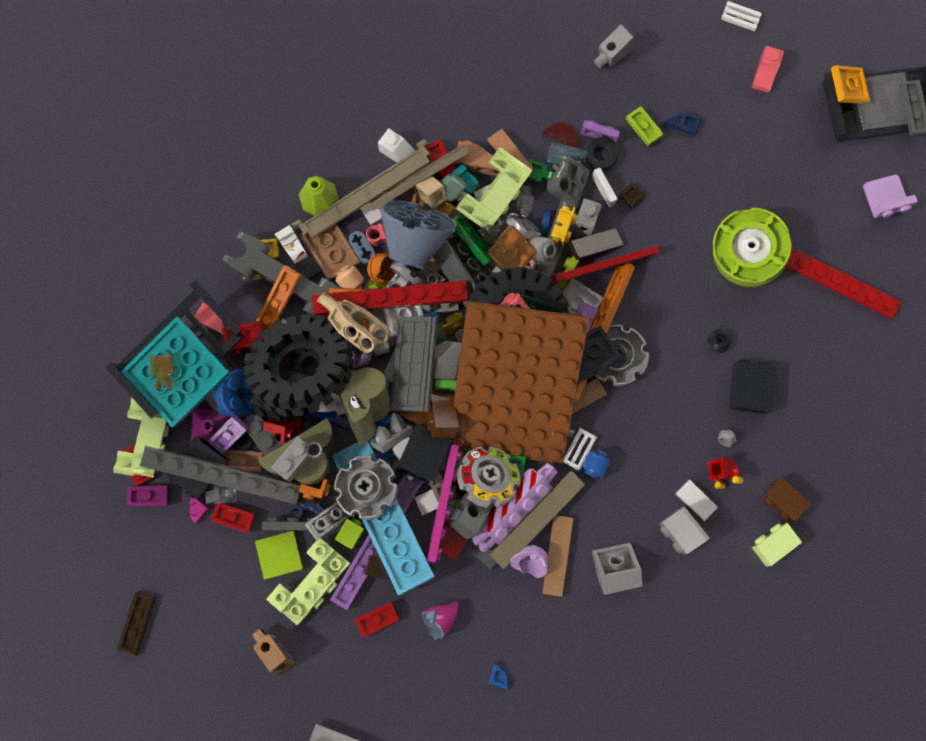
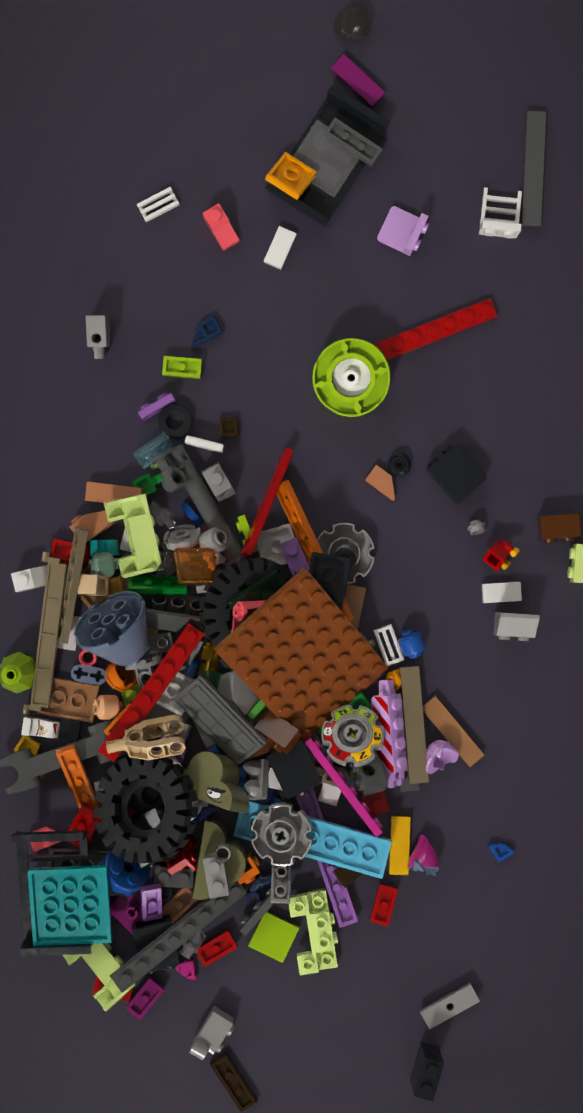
camera: 50 degrees left, 10 degrees up
(161, 367) = (59, 914): clear orange plate -> none
(162, 571) = (212, 1033): none -> light grey hinge
(277, 658) = (342, 1002): medium nougat torso -> none
(350, 533) = (304, 872): lime brick -> none
(434, 591) = (400, 845): none -> yellow tile
(561, 473) = (394, 675): none -> light orange plate
(563, 133) = (131, 435): clear red tile -> none
(566, 218) = (207, 499): yellow hinge -> none
(595, 244) = (244, 493): tile -> none
(617, 568) = (499, 696): light grey slope -> none
(695, 338) = (382, 482): none -> nougat tile
(791, 123) = (280, 247): none -> white tile

